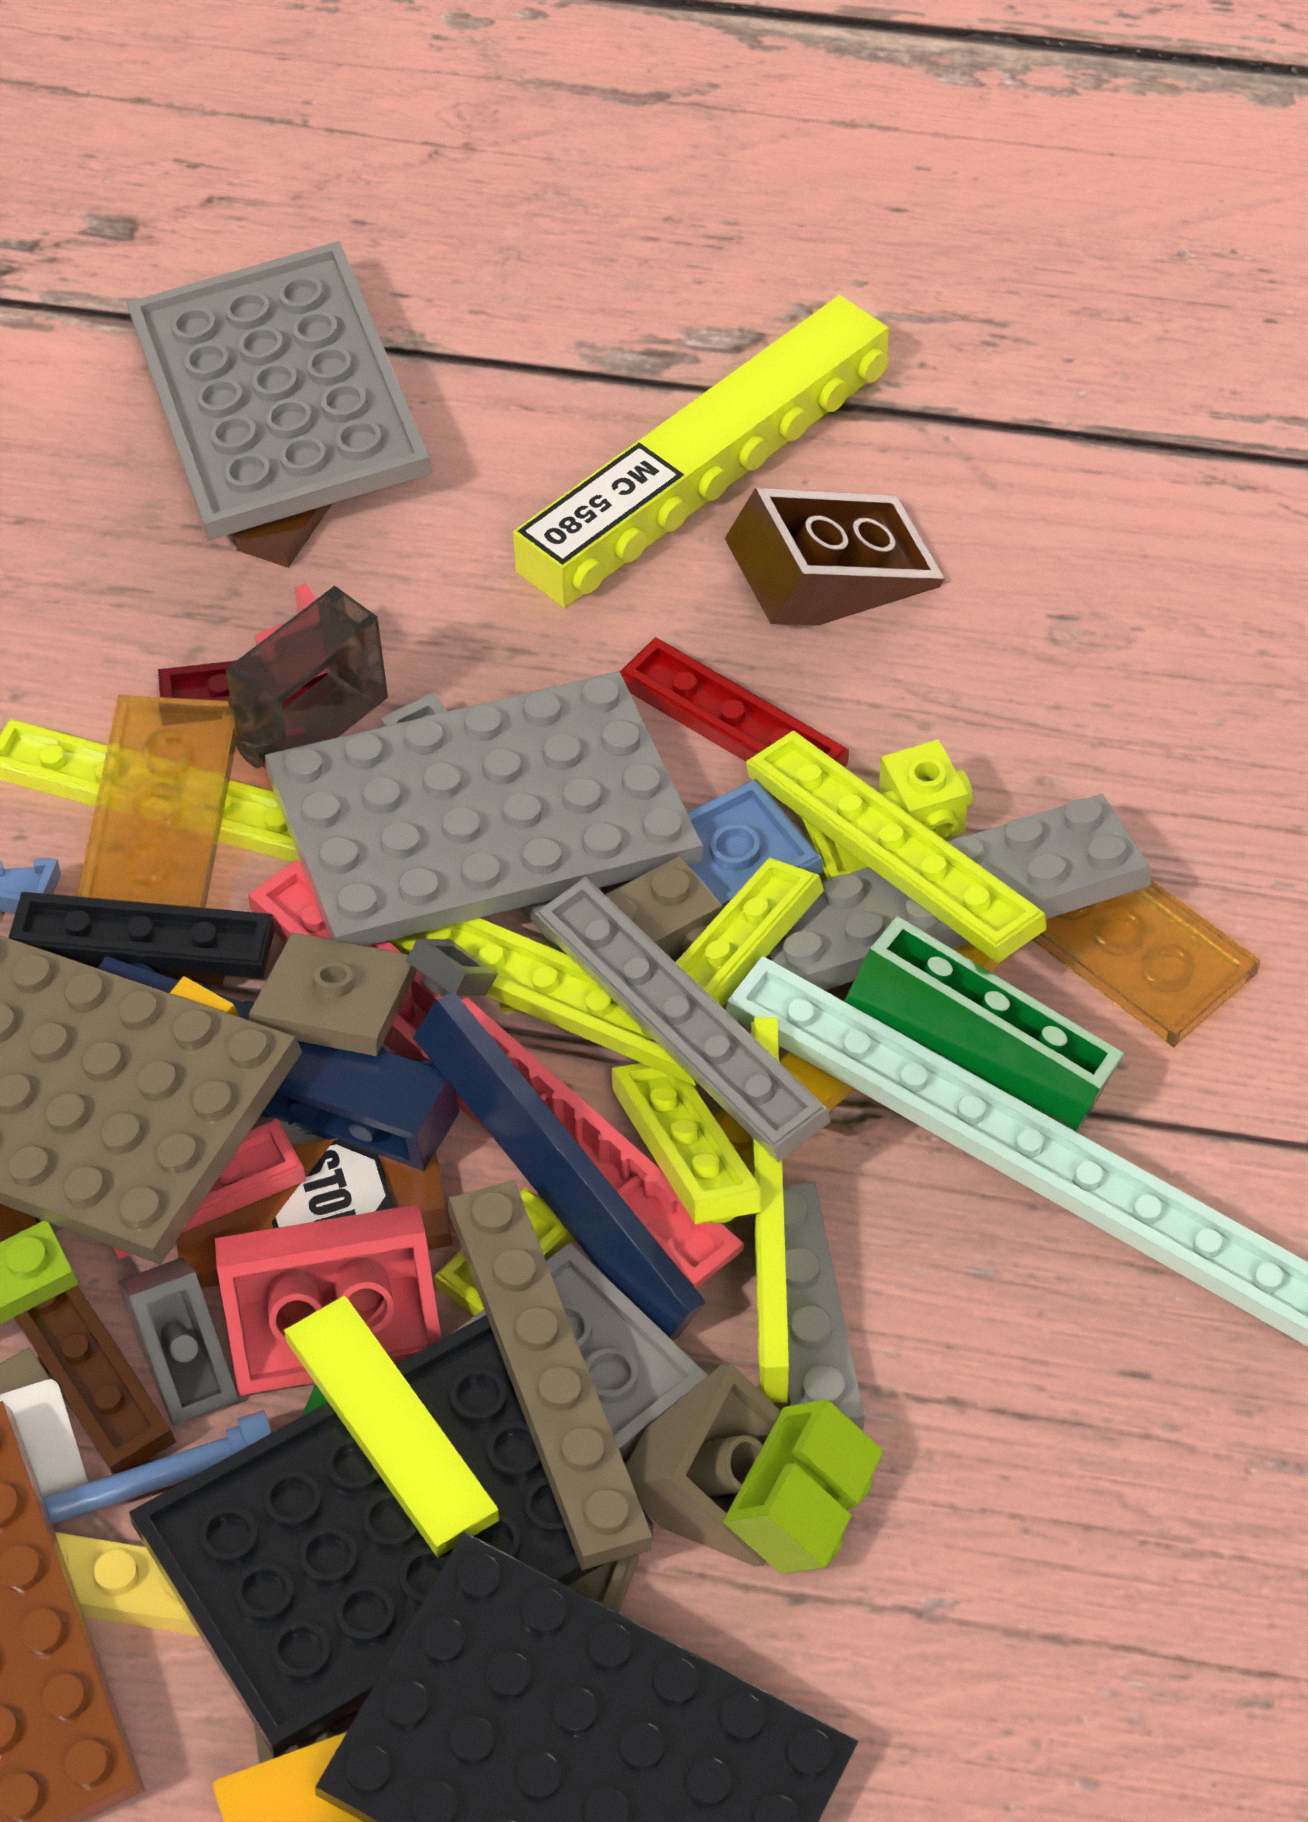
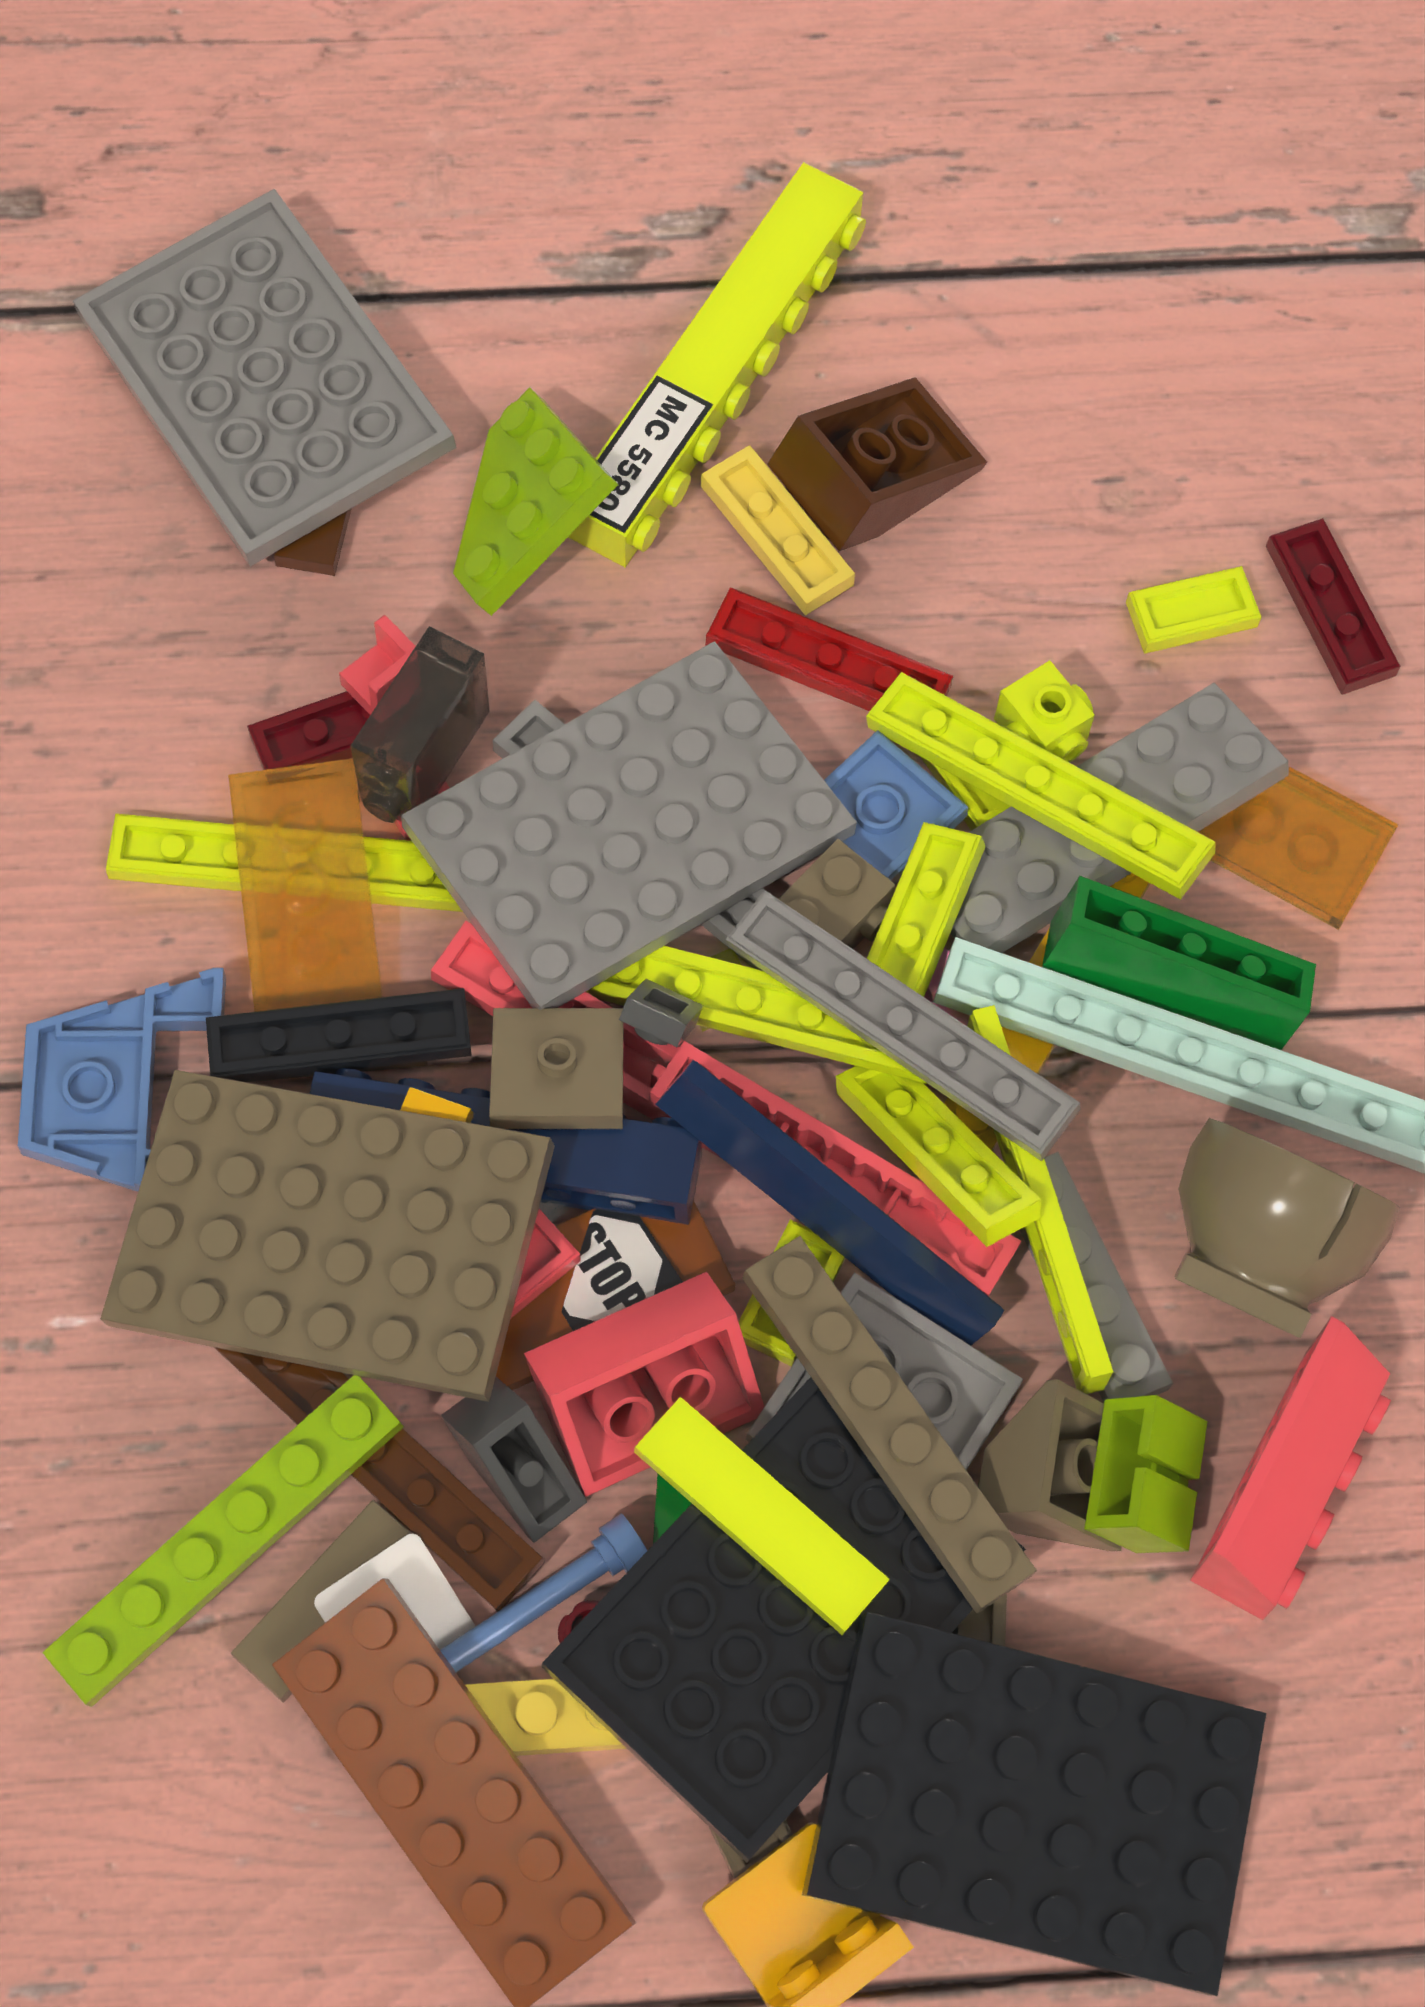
camera: 20 degrees left, 15 degrees up
(486, 520) = (526, 500): none -> lime plate
(718, 597) = (777, 530): none -> light yellow plate
(957, 1515) = (1294, 1473): none -> coral slope
(995, 1280) = (1274, 1226): none -> dark tan plate
(1110, 738) = (1193, 609): none -> neon yellow tile
(1254, 761) = (1332, 606): none -> dark red tile

